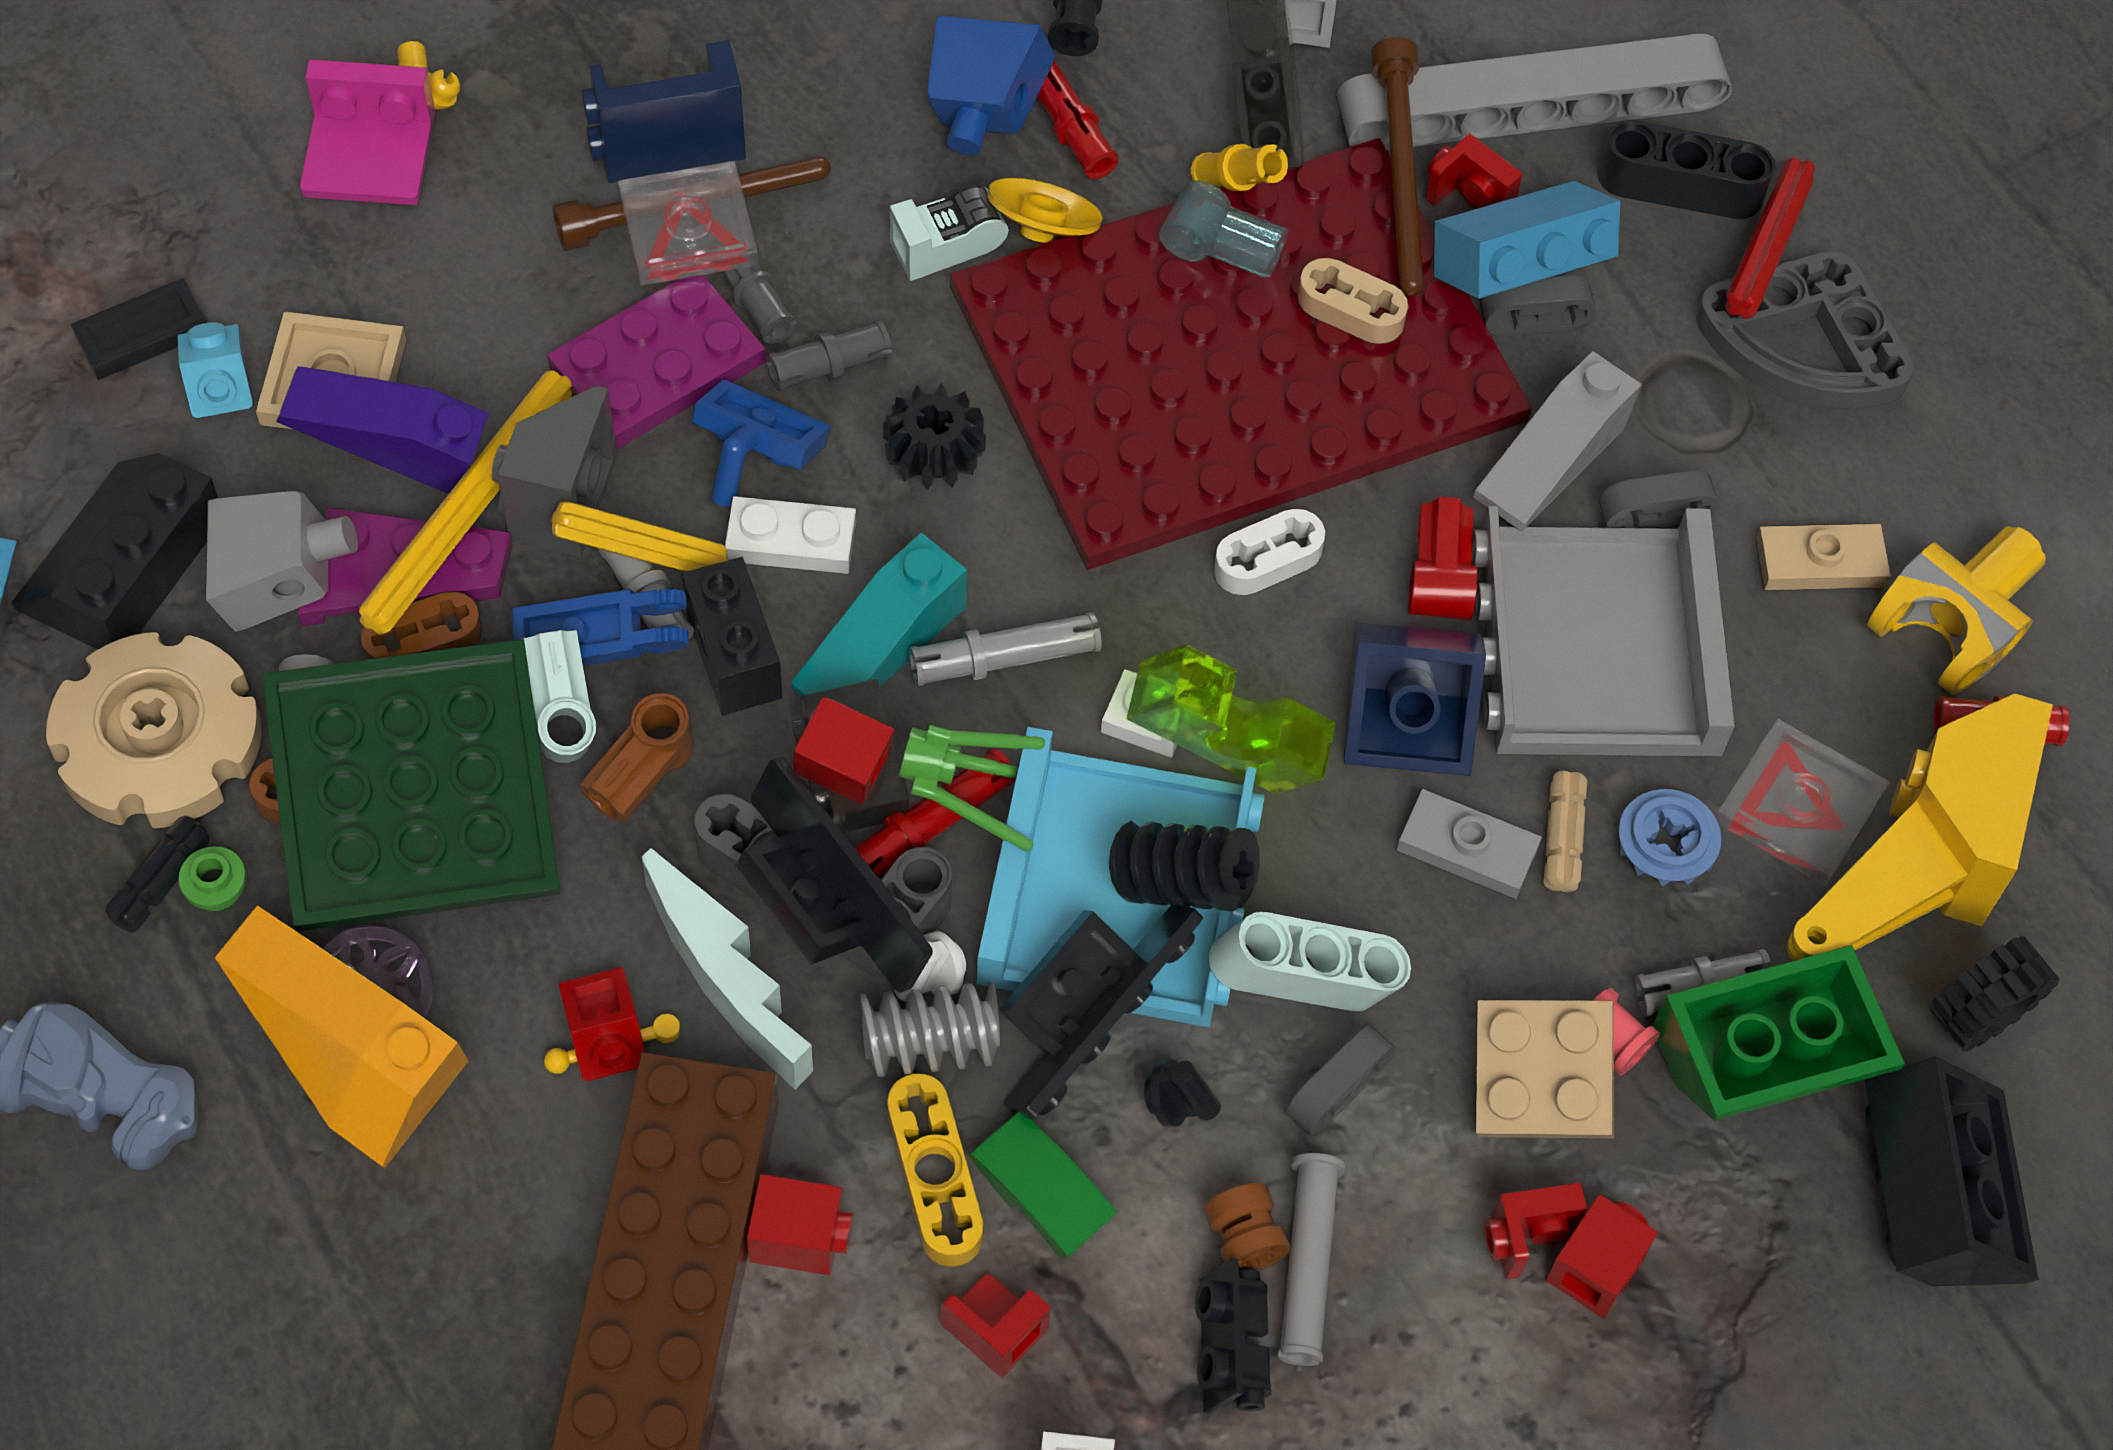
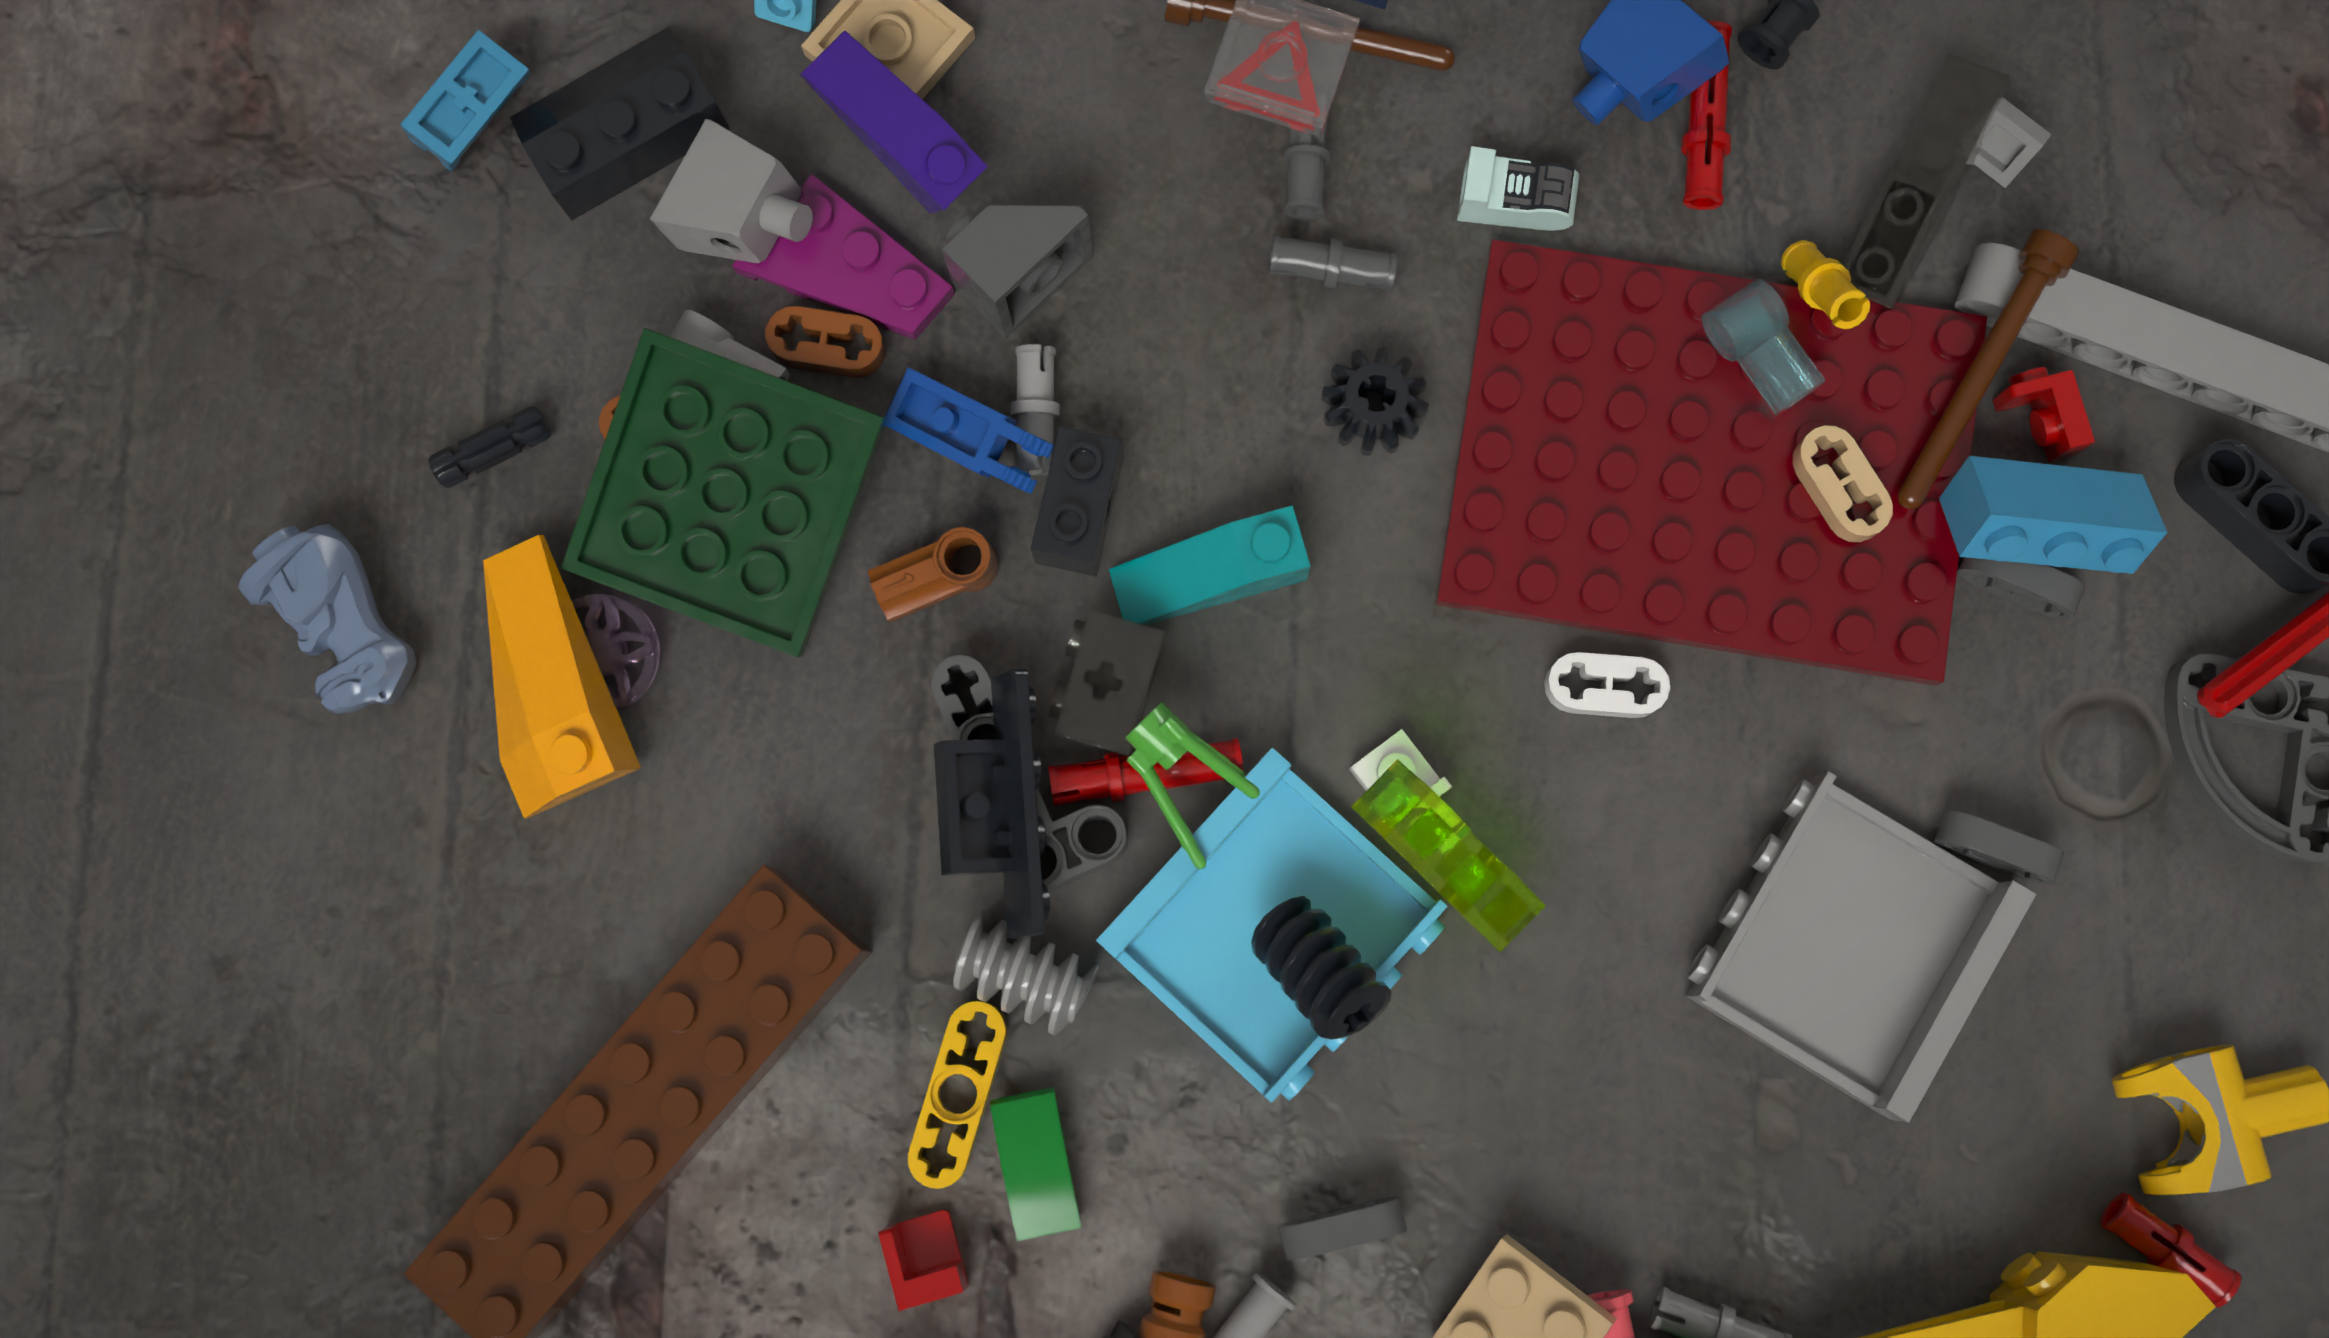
camera: 40 degrees right, 20 degrees up
(154, 729) = (508, 312): tan piece -> none
(218, 893) = (545, 486): bright green plate -> none
(452, 517) = (918, 243): yellow axle -> none
(559, 690) = (895, 475): light aqua piece -> none
(602, 1023) = (763, 799): red bracket -> none
(634, 538) = (1045, 367): yellow axle -> none
(660, 355) = (1181, 179): magenta plate -> none
(665, 1029) = (817, 830): yellow hinge -> none
(716, 953) = (888, 789): light aqua slope -> none
(758, 424) = (1224, 302): blue plate -> none
(791, 534) = (1194, 423): white plate -> none
(798, 1225) = (813, 1081): red brick -> none
(843, 750) = (1086, 691): red panel -> none
(943, 969) = (1072, 913): white plate -> none
(1003, 649) = (1309, 647): light grey pin -> none
(1044, 209) = (1619, 219): yellow dish -> none
(1082, 993) = (1167, 1028): black bracket -> none
(1178, 1092) = (1193, 1149): black plate -> none
(1285, 973) = (1399, 1133): light aqua beam -> none
(1413, 698) = (1641, 909): dark blue slope -> none
(1442, 576) = (1746, 806): red piece -> none
(1469, 843) = (1601, 1072): light grey plate -> none
(1560, 440) = (1942, 737): light grey slope -> none
(1565, 831) = (1694, 1112): tan axle -> none
(1680, 815) = (1799, 1202): medium blue gear -> none
(1801, 801) = (1931, 1211): clear tile -> none
(1822, 557) = (2119, 986): tan plate -> none

